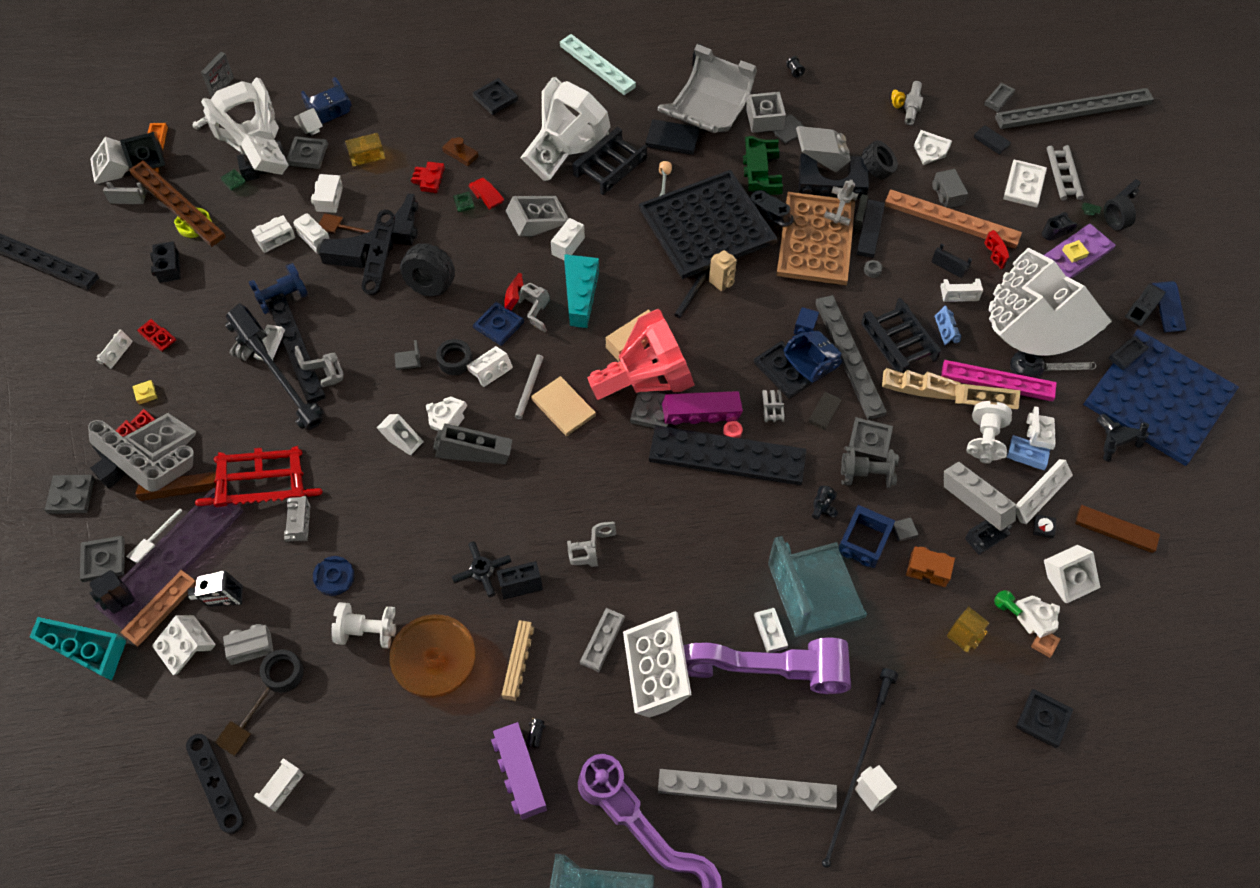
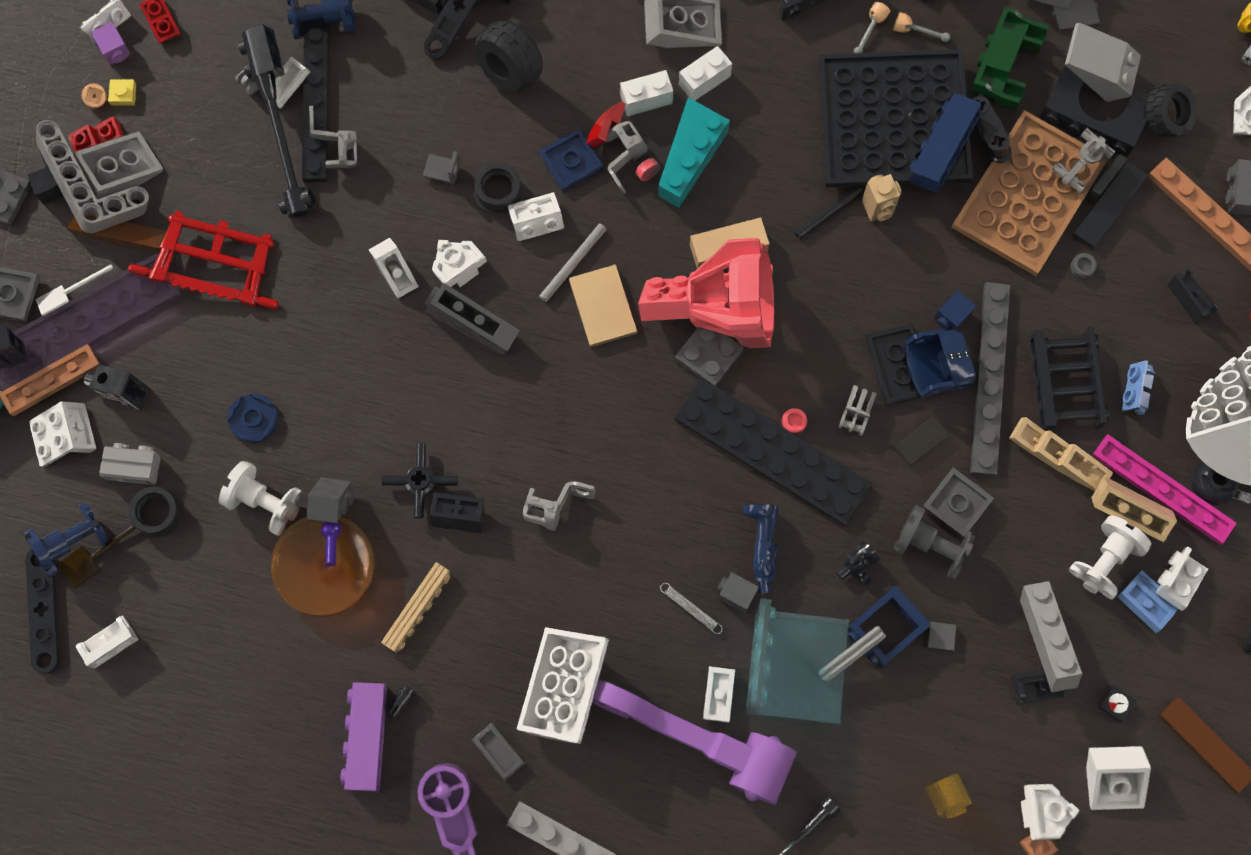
camera: 25 degrees right, 15 degrees up
(123, 401) = (94, 95): none -> light nougat tile
(124, 362) = (111, 43): none -> medium lavender brick
(204, 729) = (57, 544): none -> dark blue piece
(297, 519) = (237, 332): light grey hinge -> none
(419, 605) = (329, 500): none -> dark grey brick
(429, 627) = (331, 532): none -> dark purple bar
(533, 263) = (646, 93): none -> white brick
(555, 309) = (647, 169): none -> coral tile
(602, 640) = (522, 622): light grey tile -> none
(626, 740) = (498, 751): none -> dark grey tile
(684, 169) = (904, 24): none -> hinge
(702, 407) = (767, 379): magenta brick -> none
(722, 579) = (704, 614): none -> white piece
(744, 493) = (765, 550): none -> dark blue piece
(749, 222) = (945, 142): none -> dark blue brick
(749, 555) = (737, 592): none -> dark grey brick
(851, 561) = (852, 654): none -> light grey axle
(930, 565) = (948, 695): dark orange brick -> none
(961, 292) = (1183, 344): white hinge -> none
(1005, 600) = (1015, 777): green plate -> none
(1043, 491) = (1138, 659): white plate -> none

